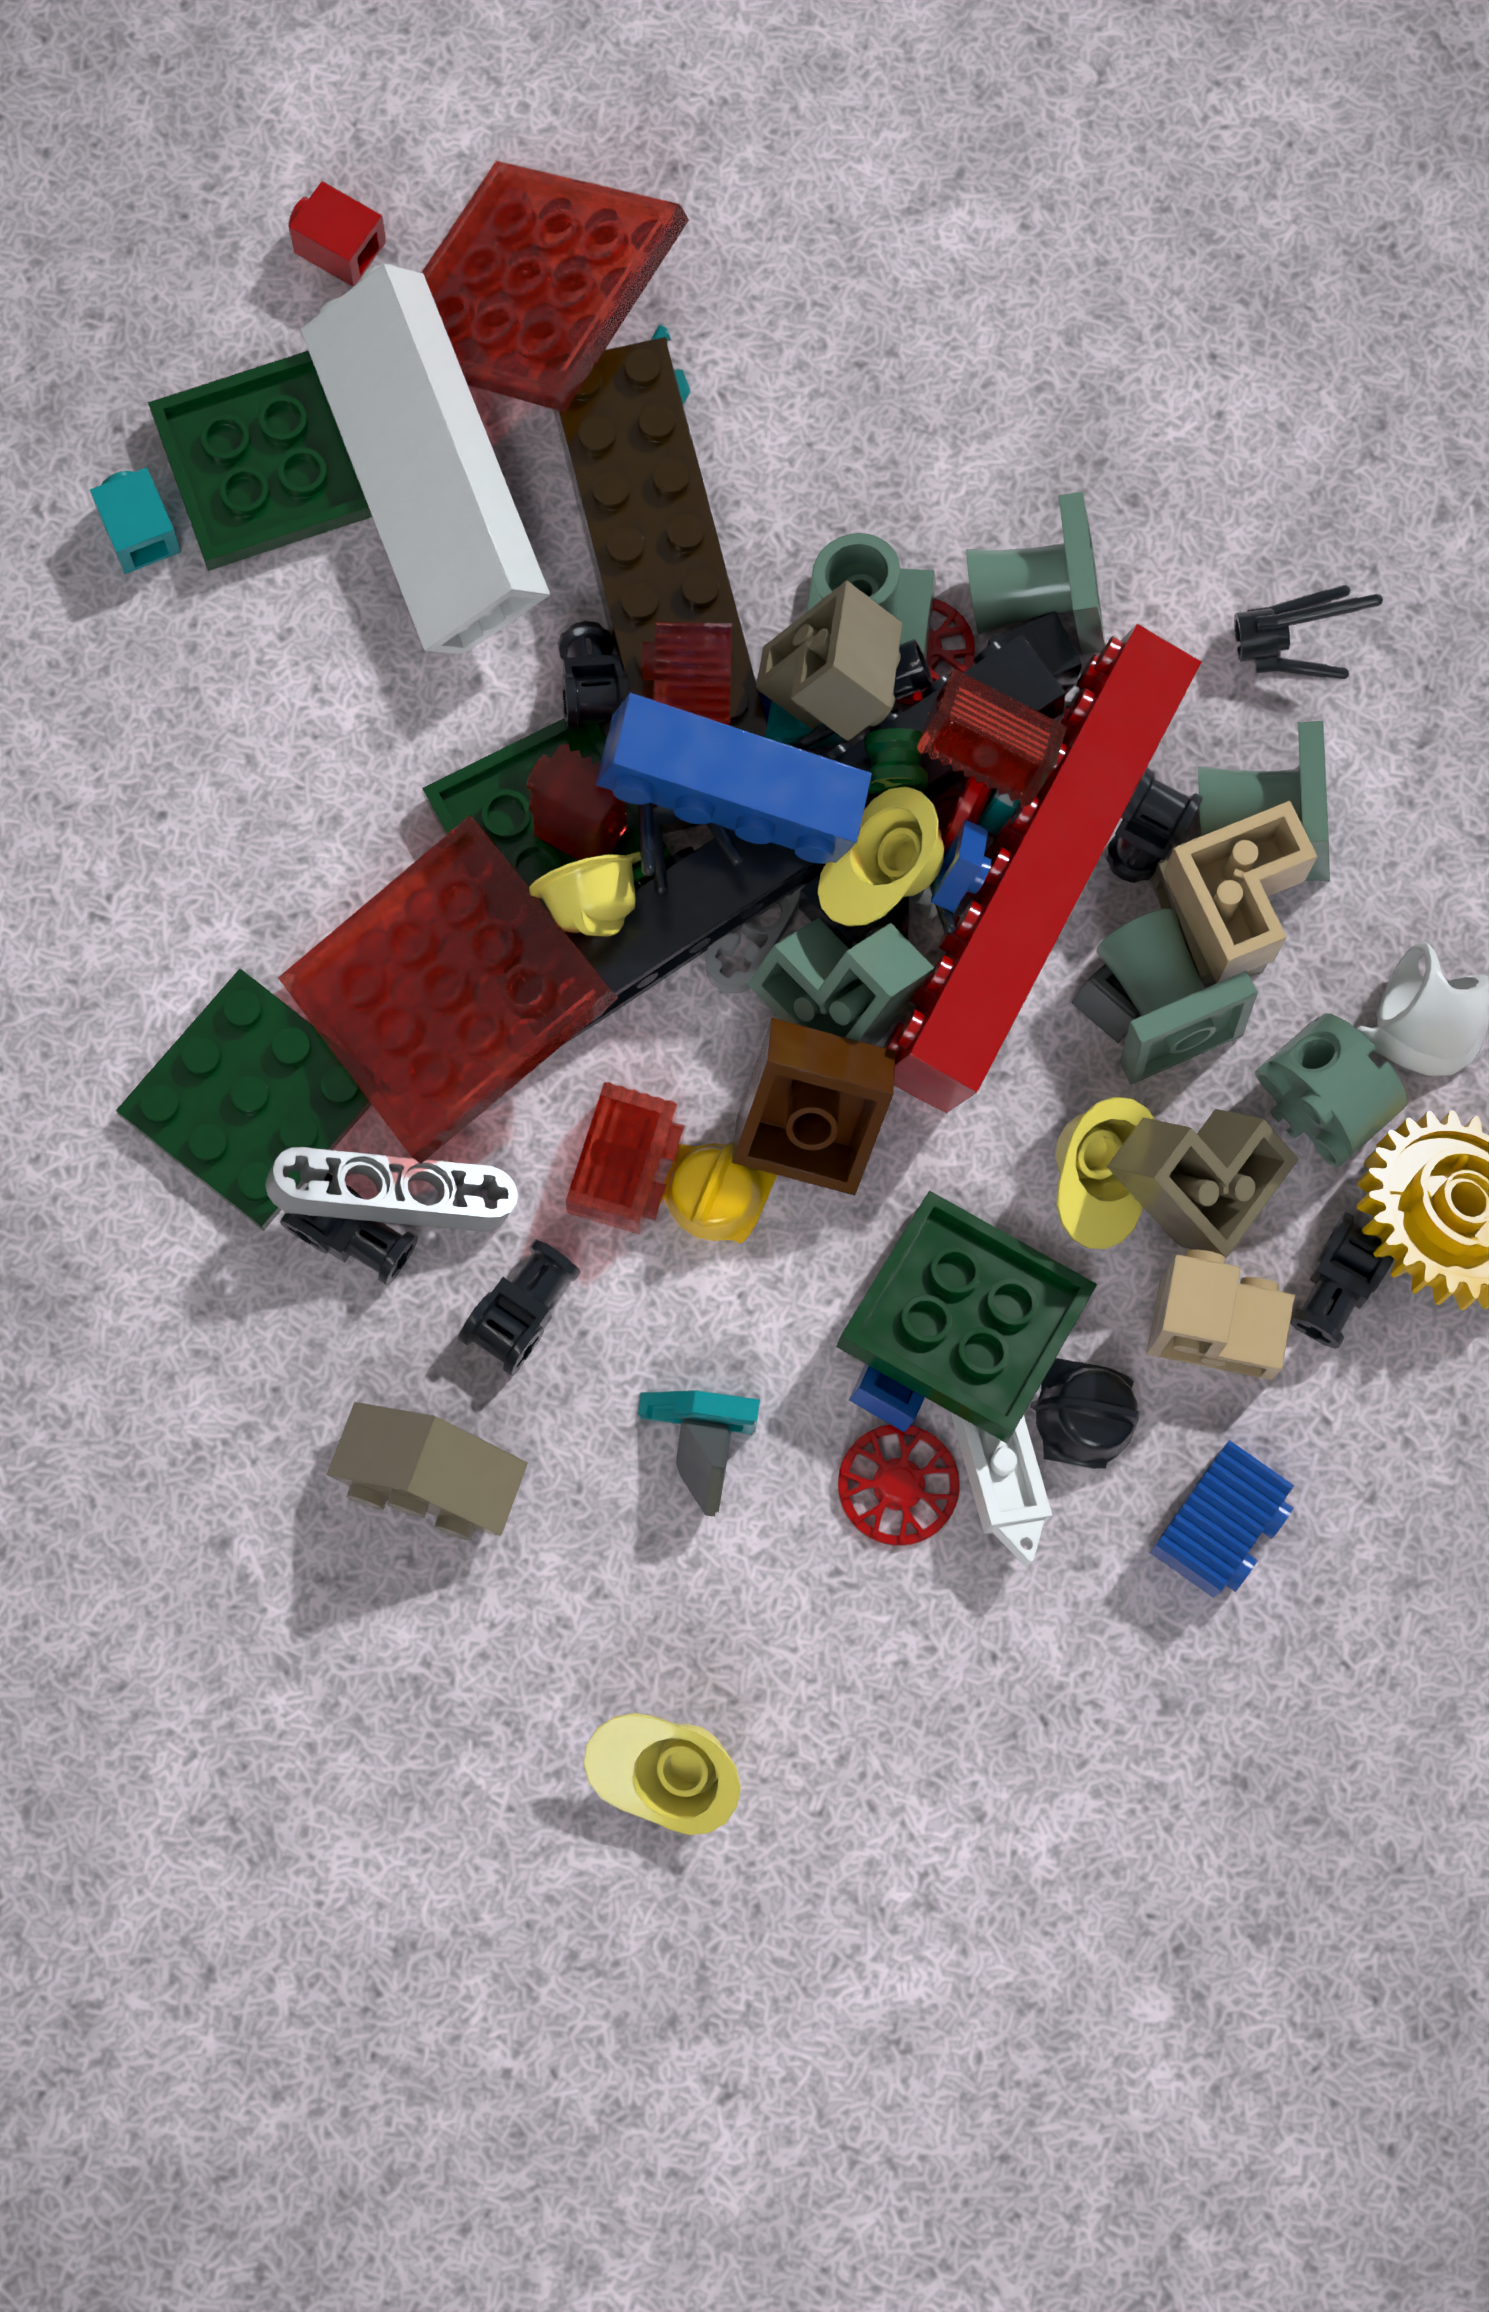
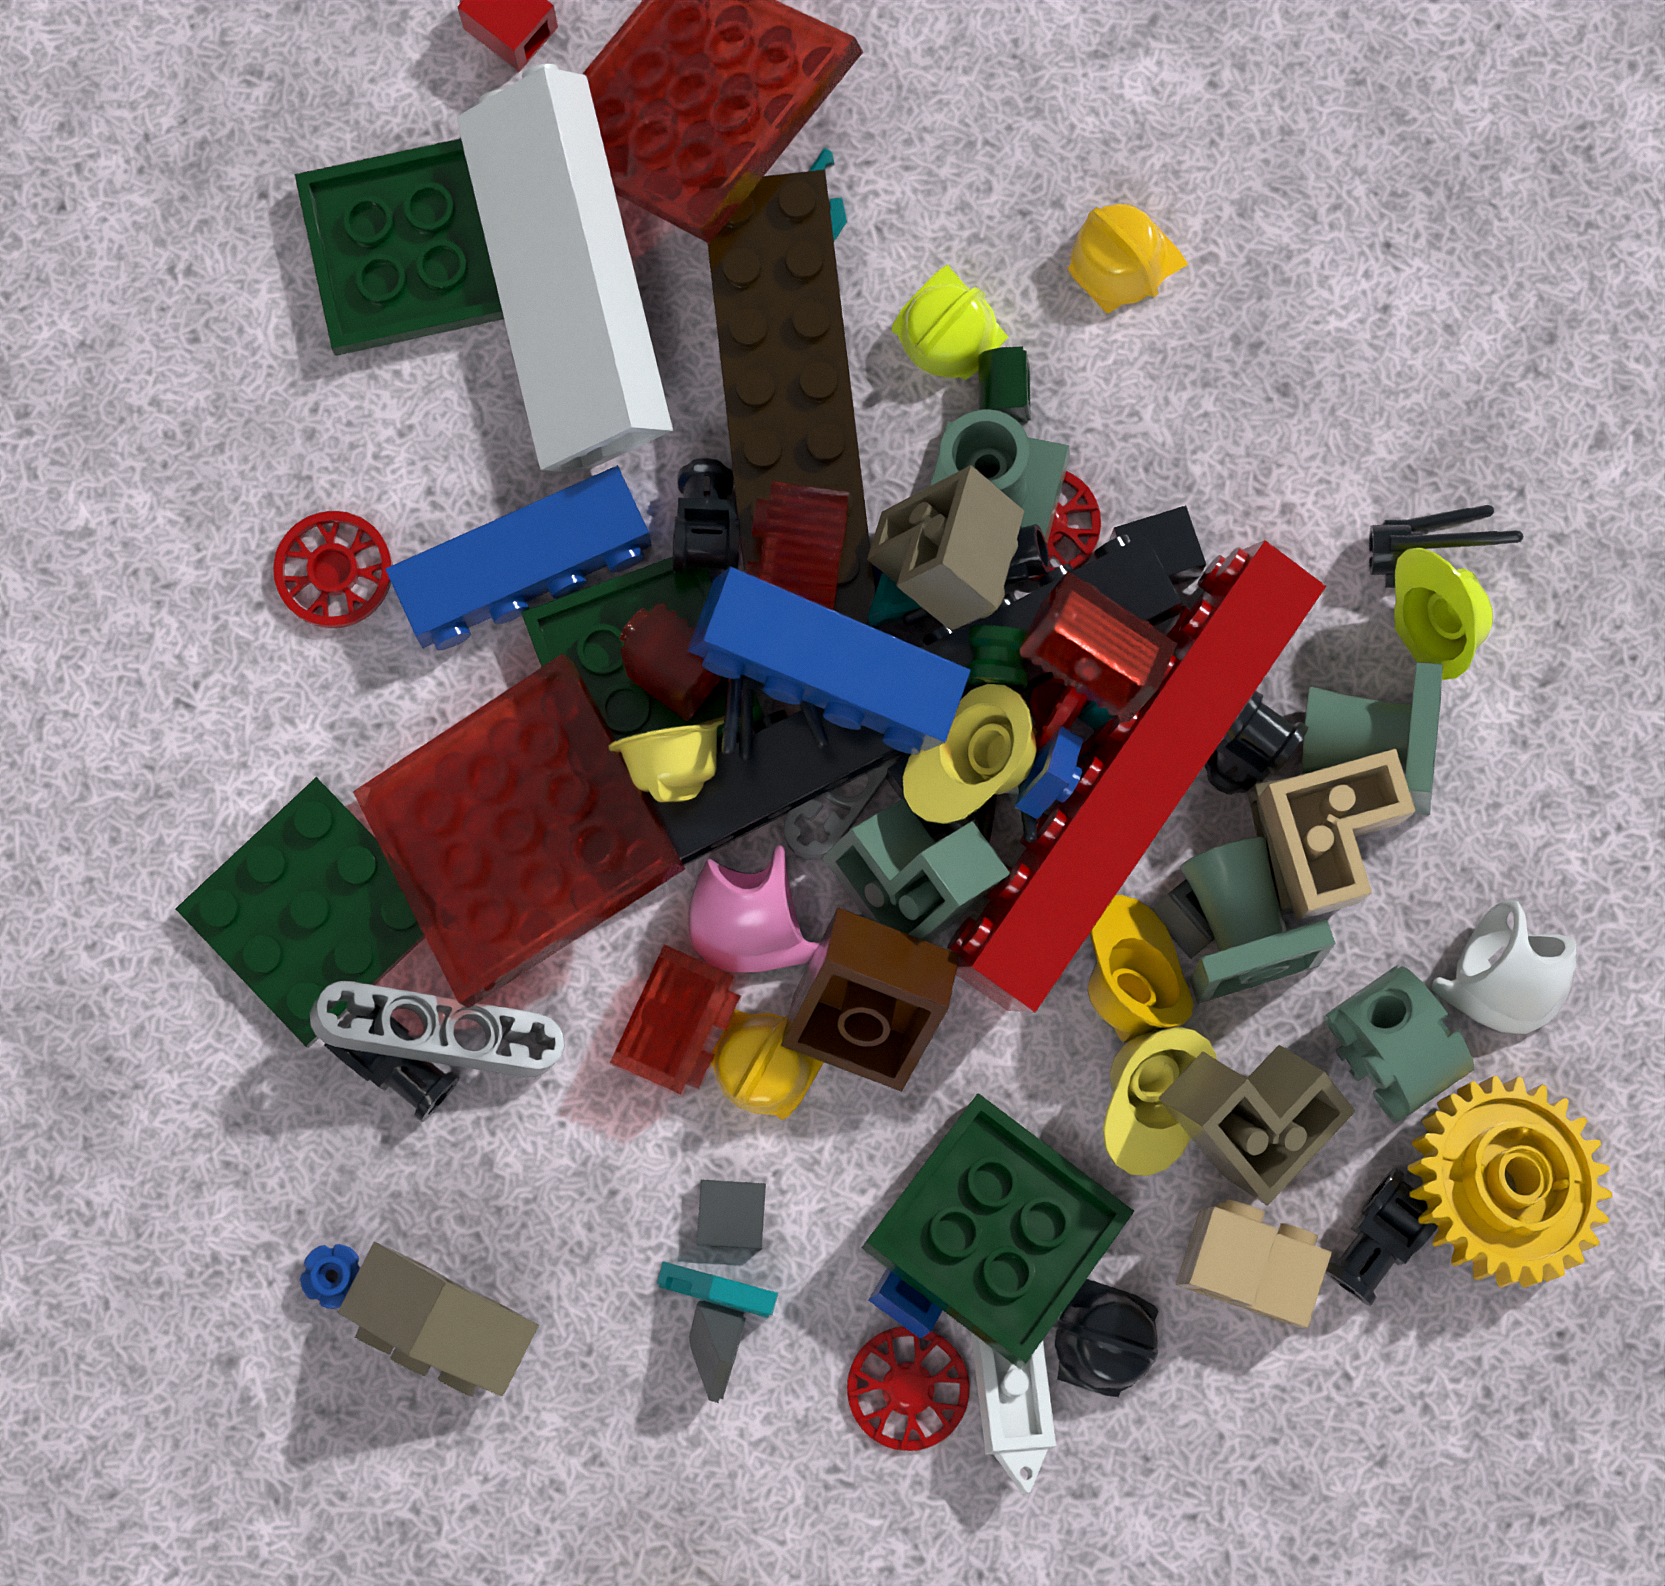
camera: 10 degrees right, 5 degrees up
(135, 519) = (266, 295): teal brick -> none
(231, 771) = (332, 569): none -> red wheel
(299, 1436) = (318, 1263): none -> blue plate
(415, 737) = (520, 558): none -> blue brick
(519, 1307) = (550, 1166): black connector -> none
(681, 1052) = (745, 919): none -> bright pink piece
(702, 1338) = (731, 1214): none -> dark grey tile
(802, 478) = (947, 326): none -> neon yellow piece
(863, 511) = (1005, 382): none -> dark green brick
(960, 392) = (1122, 256): none -> yellow piece
(1040, 580) = (1177, 470): sand green plant -> none
(1066, 1056) = (1136, 971): none -> yellow piece
(1223, 1520) = (1229, 1470): blue brick -> none
(1311, 679) = (1440, 611): none -> neon yellow piece

